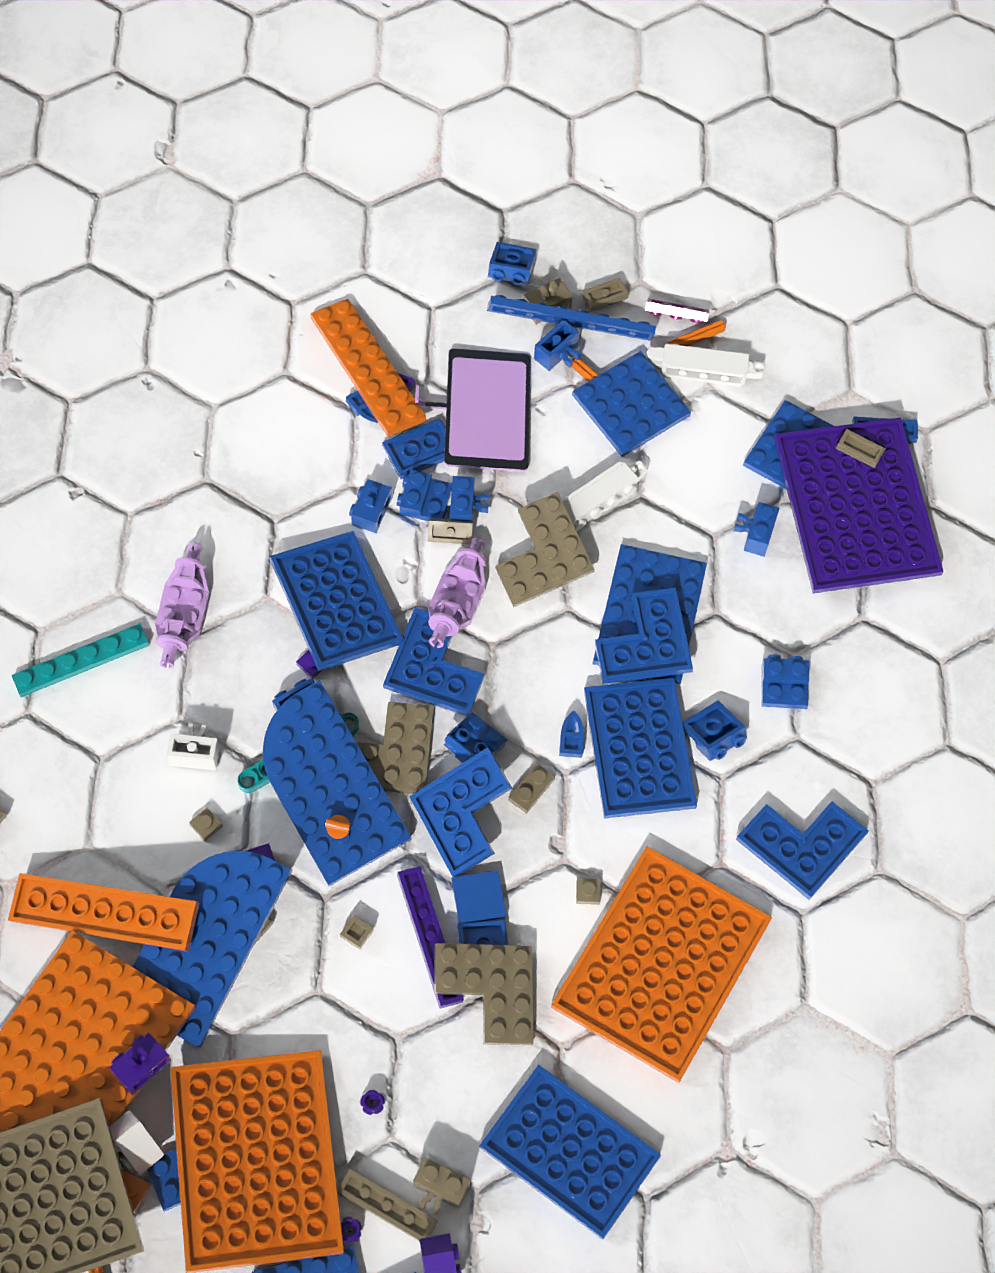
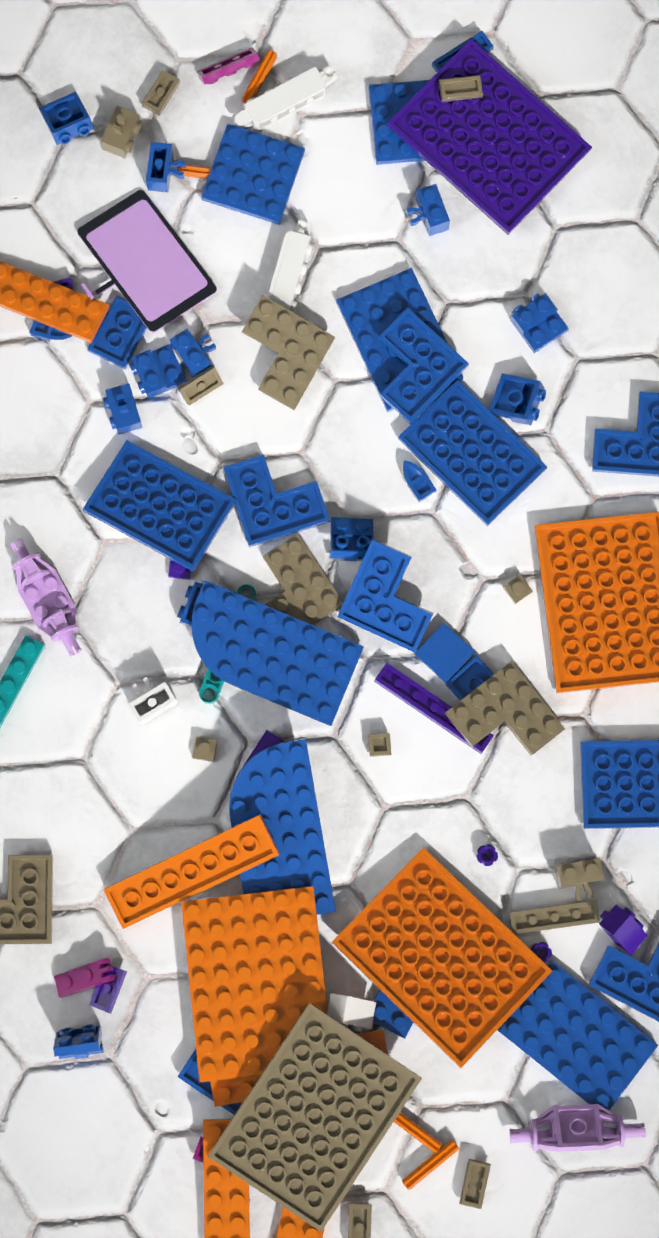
camera: 35 degrees left, 15 degrees up
(139, 1063) = (313, 957): dark purple brick -> none
(338, 826) = (308, 679): orange plate -> none
(457, 594) = (248, 433): lavender plate -> none
(531, 788) = (418, 541): dark tan plate -> none
(579, 319) = (160, 132): blue plate -> none

